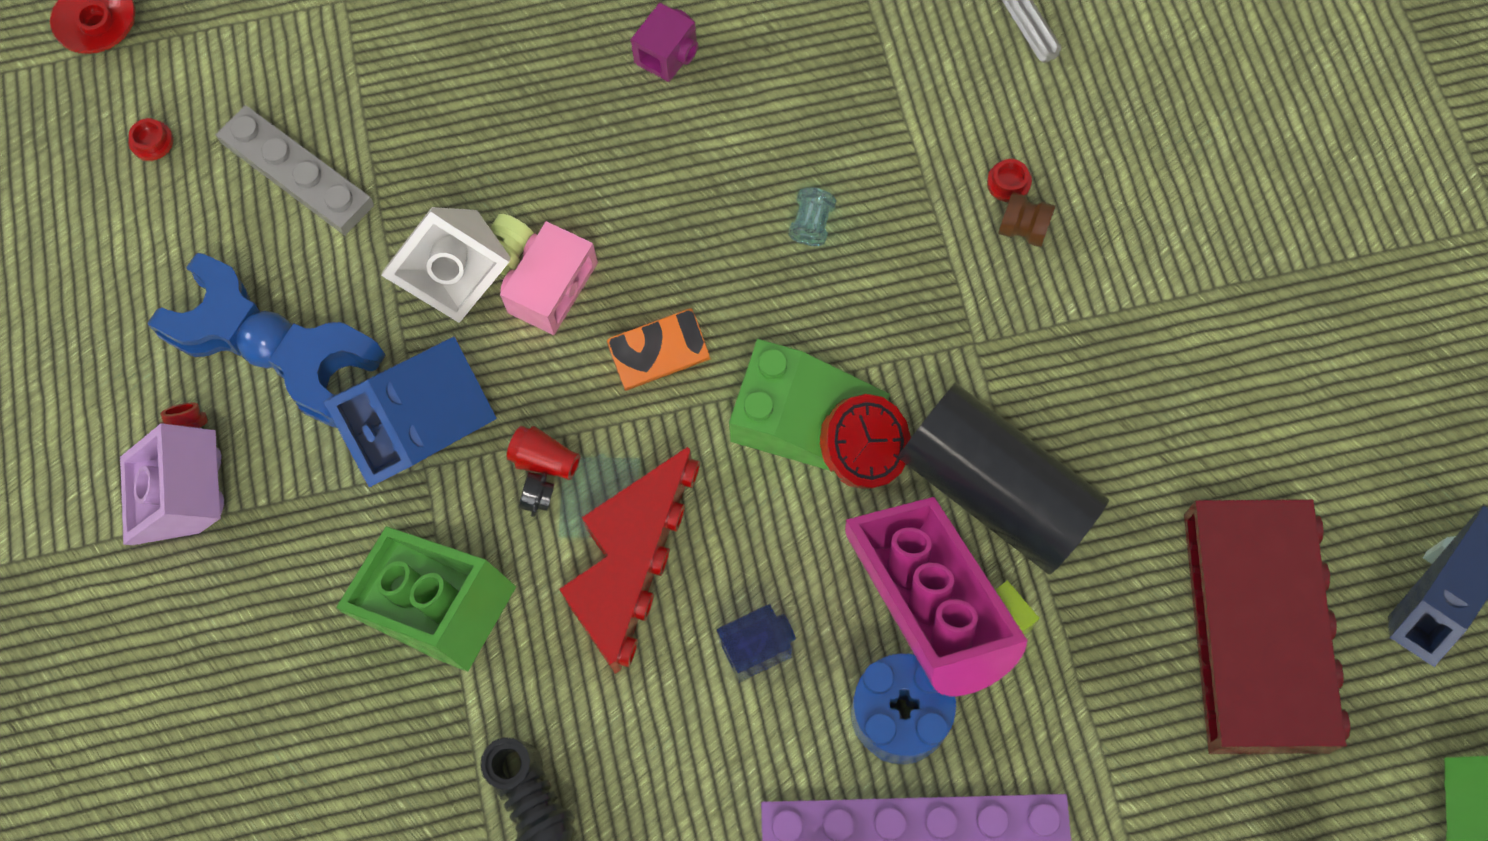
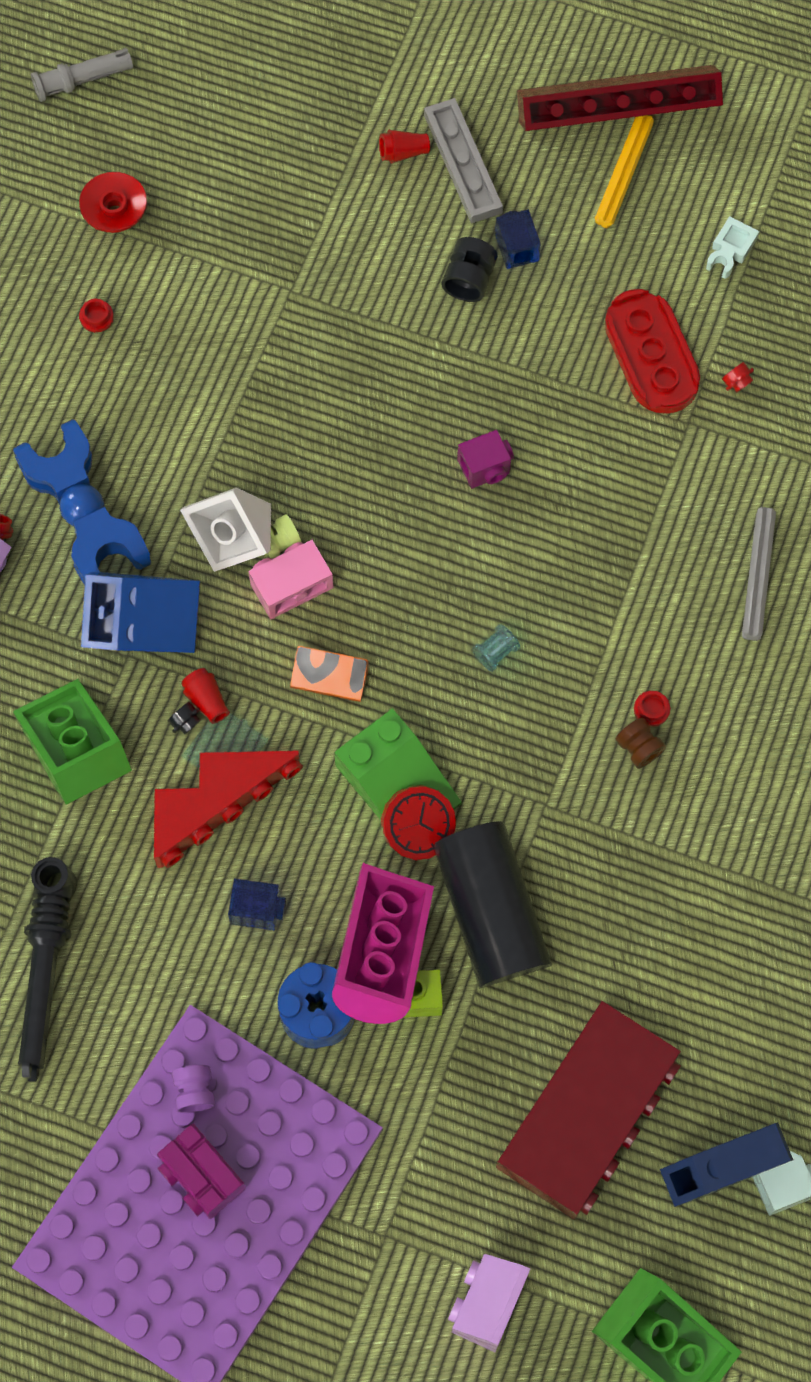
camera: 30 degrees right, 0 degrees up
(295, 170) = (176, 396): light grey plate -> none

